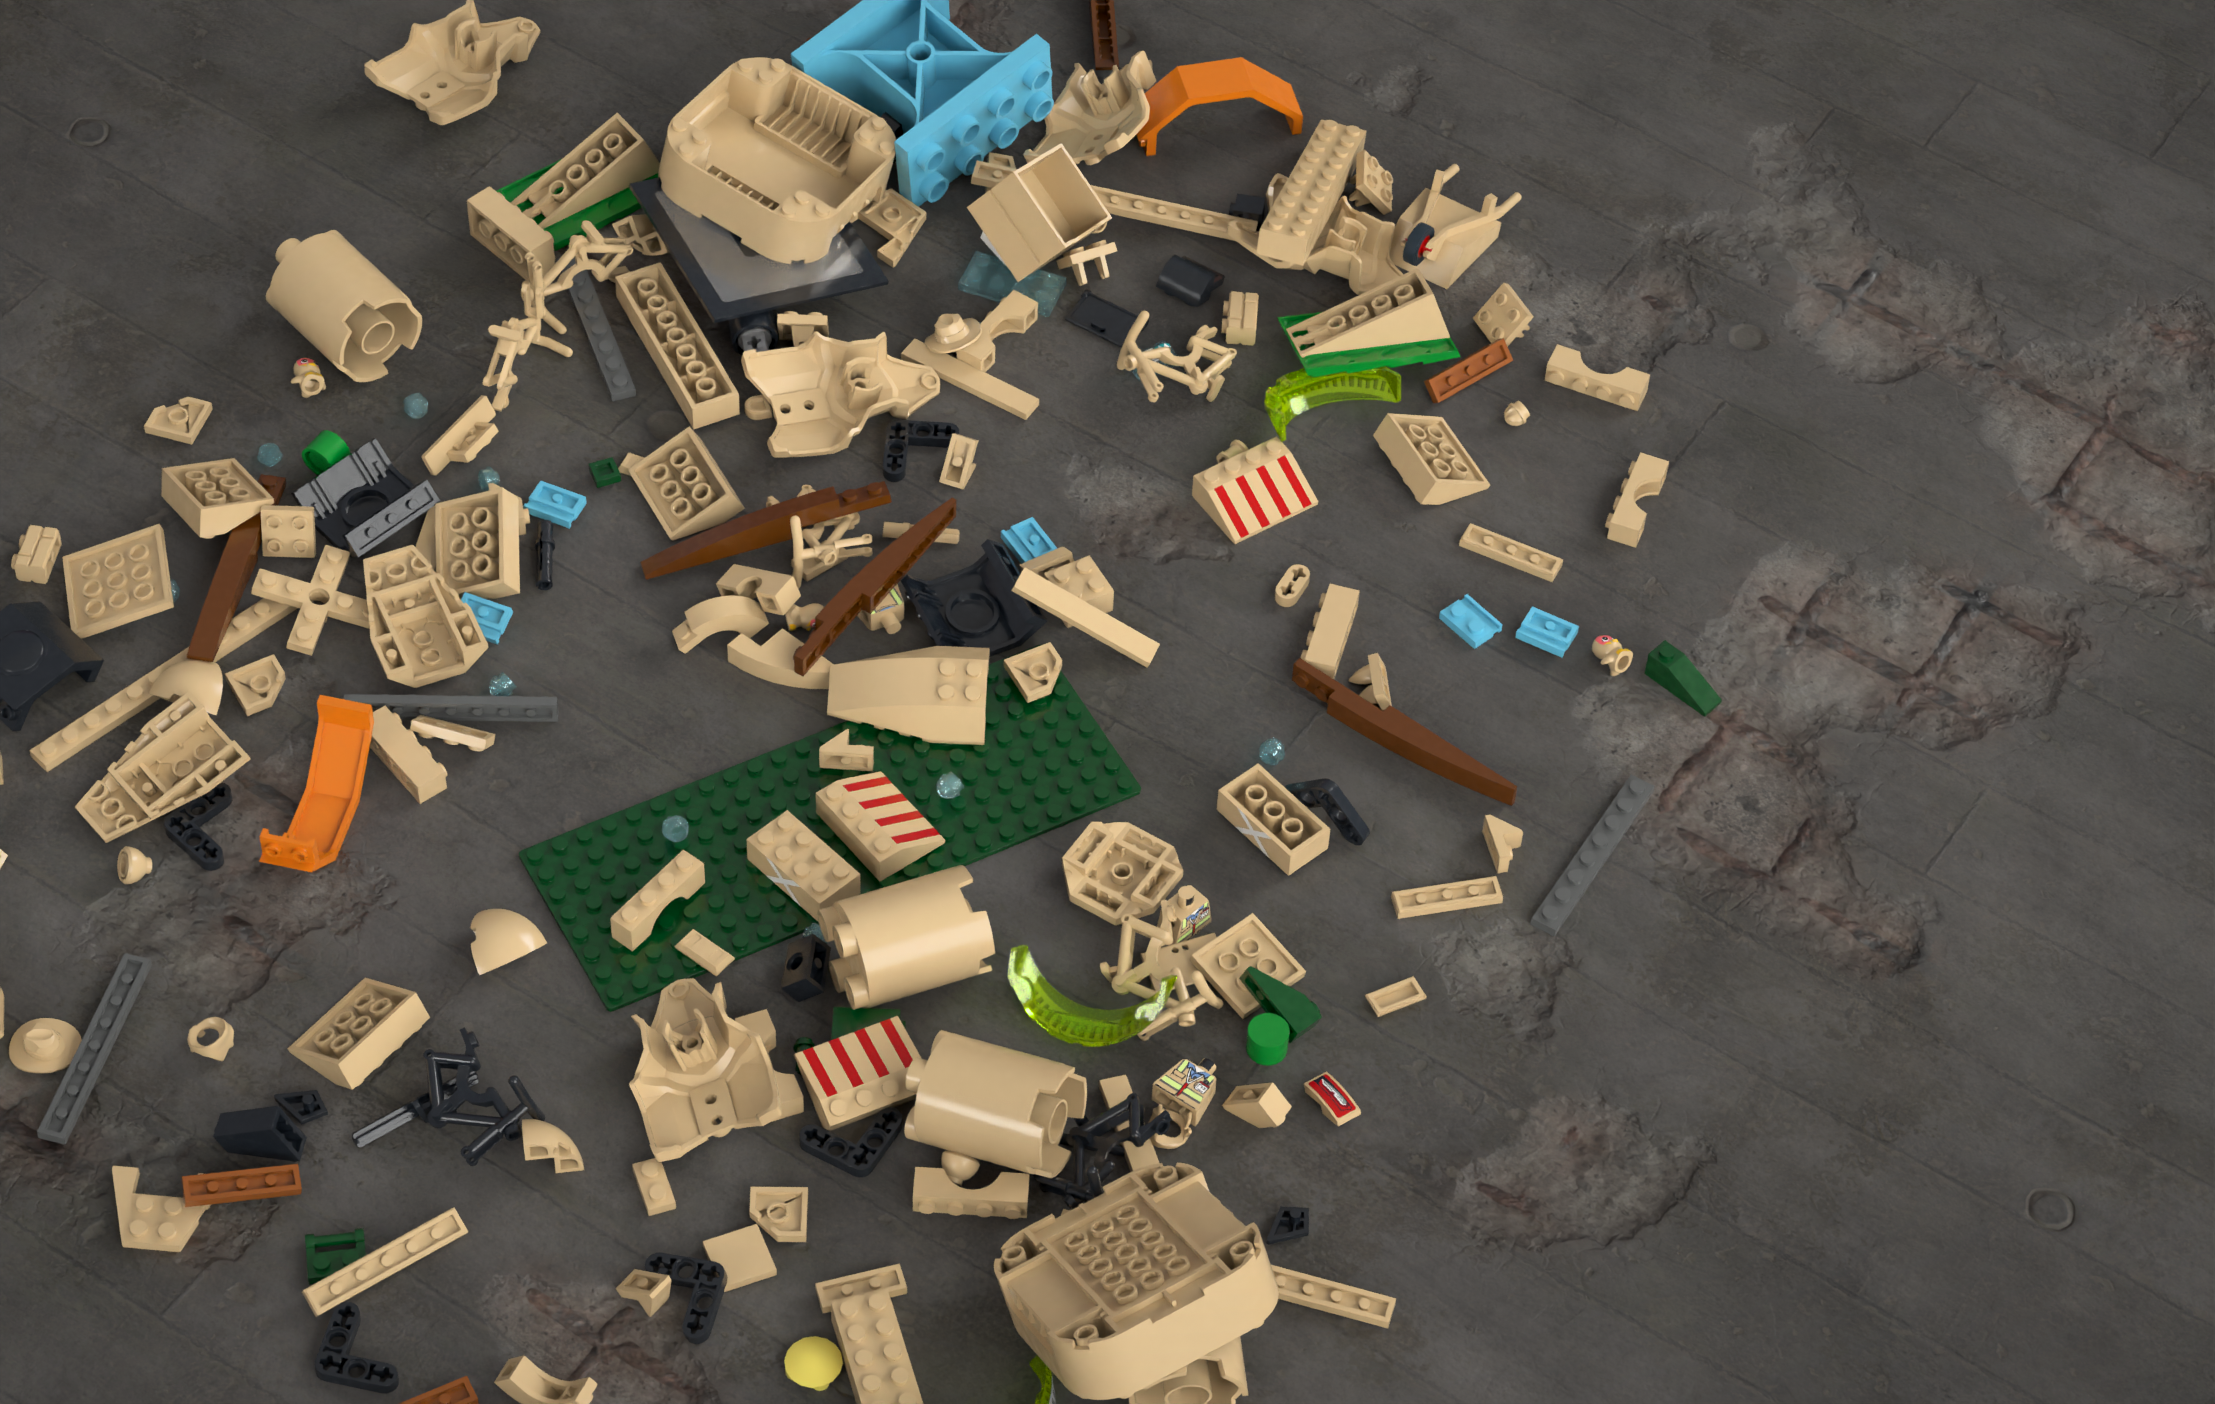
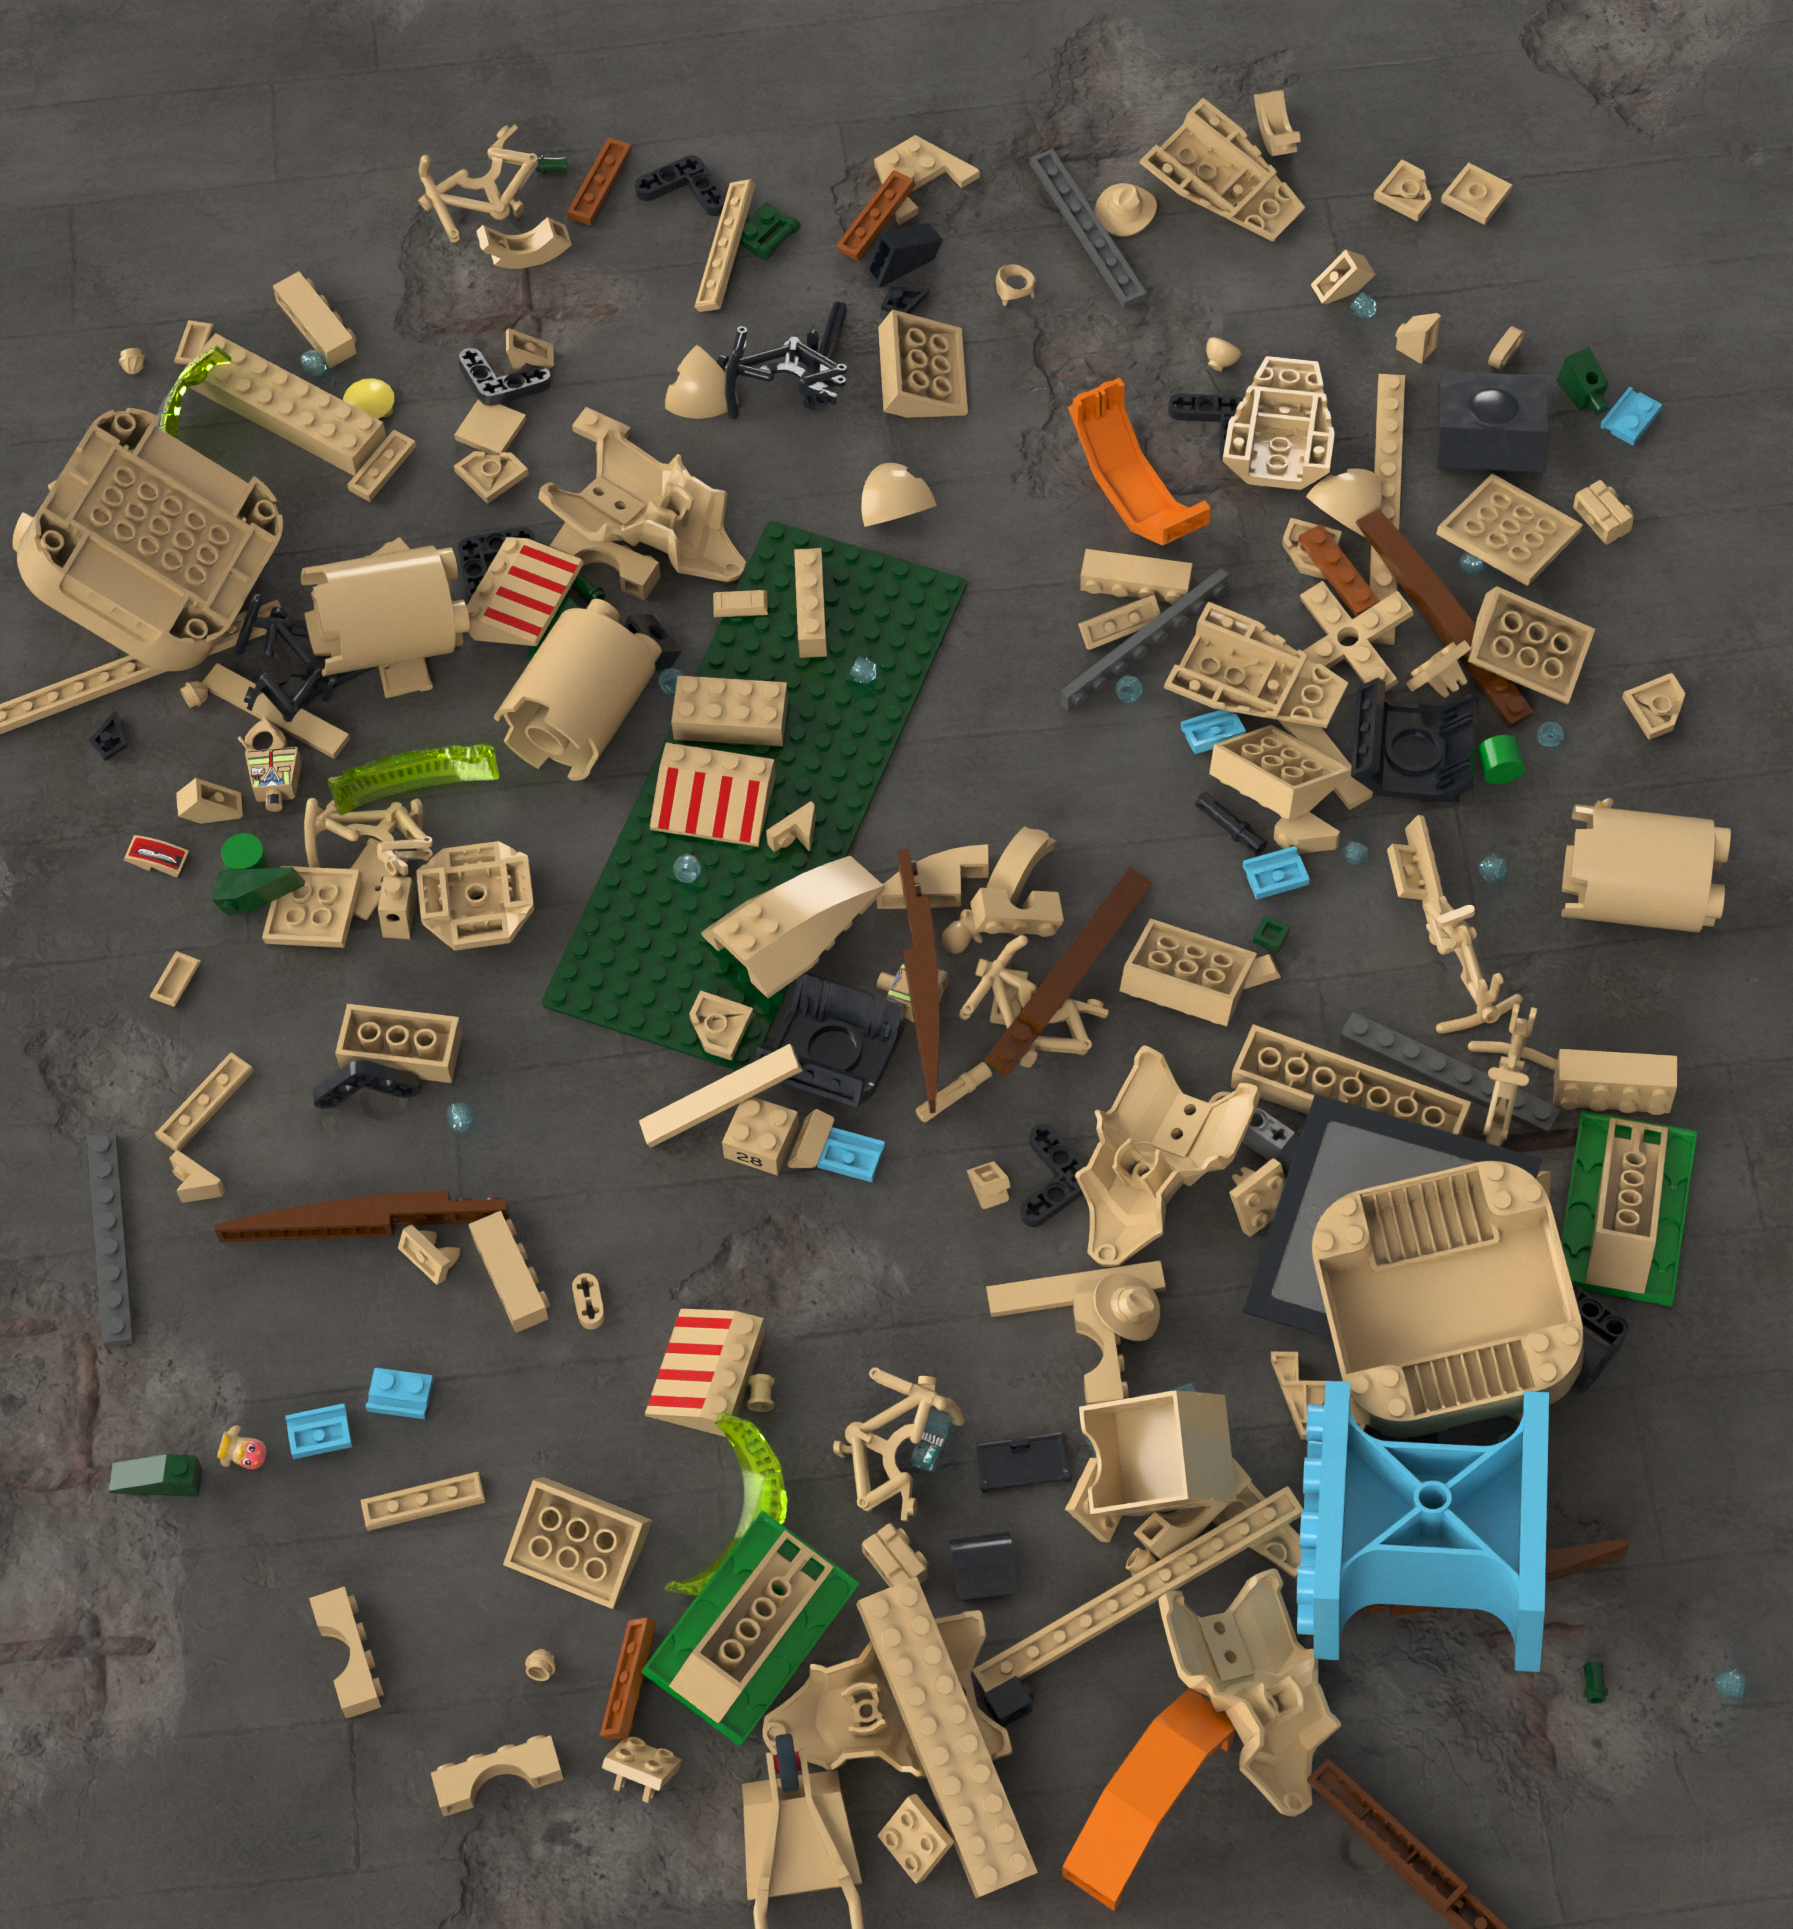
camera: 145 degrees right, 10 degrees up
(265, 644) = (1338, 570): none -> dark orange plate

